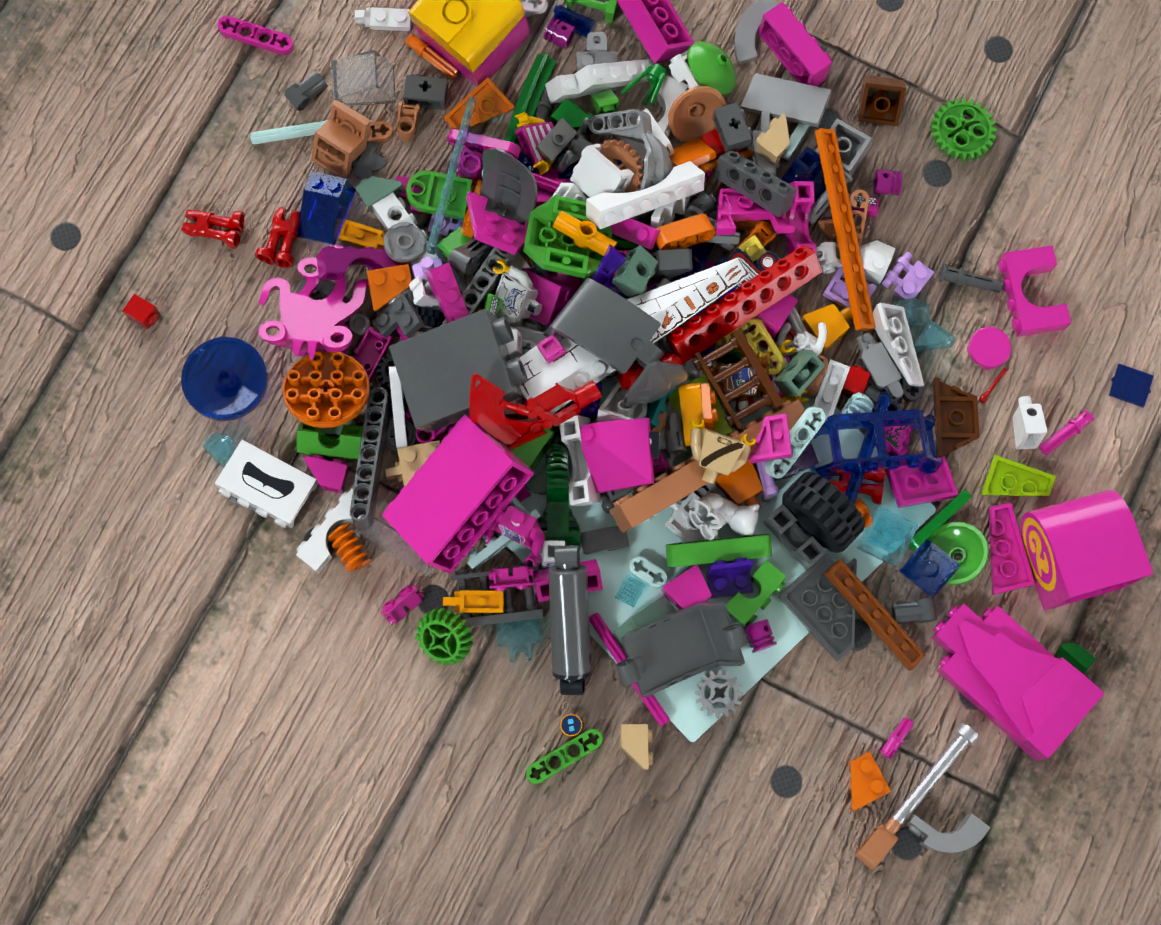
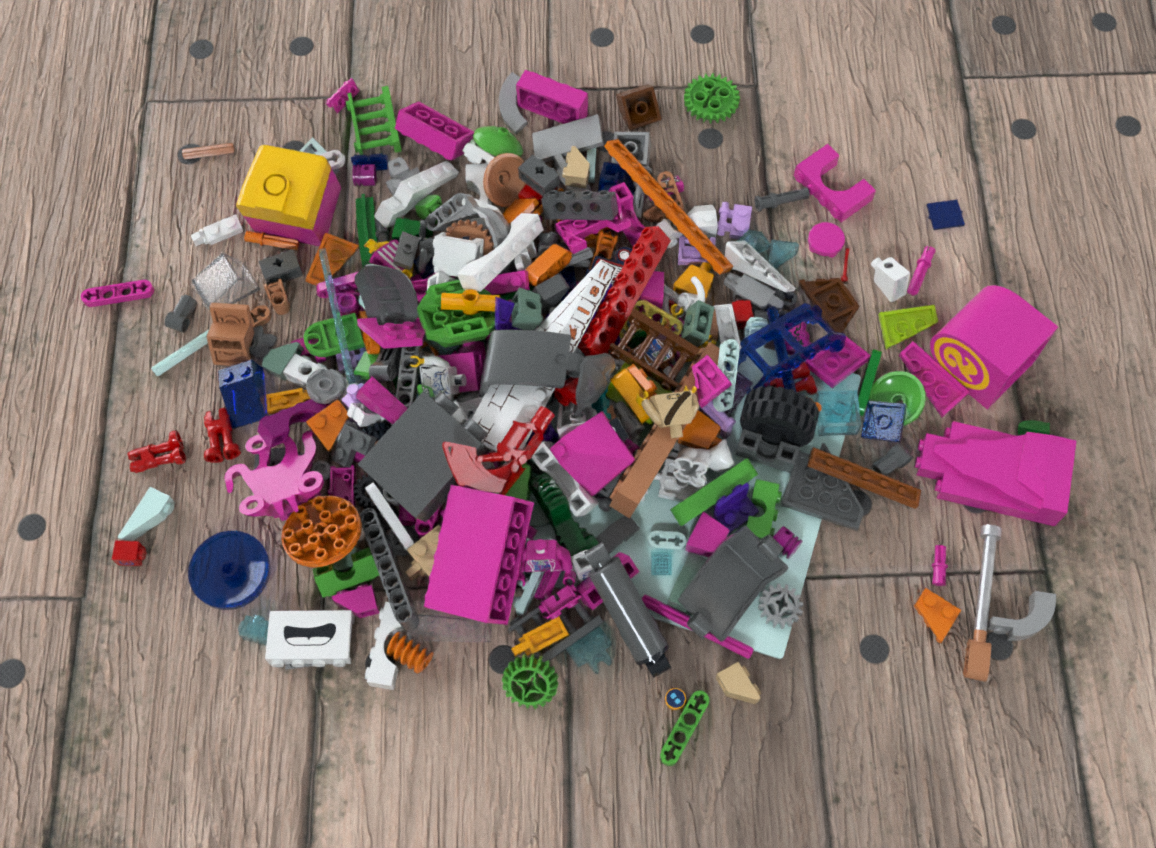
camera: 20 degrees left, 10 degrees down
(177, 282) = (150, 512): none -> light aqua slope
(407, 597) = (474, 682): dark pink hinge -> none
(509, 554) = (546, 585): none -> dark pink tile
(551, 348) = (492, 401): dark pink tile -> none
(655, 76) = (458, 168): green plant -> none
(752, 248) = (606, 251): light yellow tile -> none
(887, 182) = (678, 160): magenta piece -> none

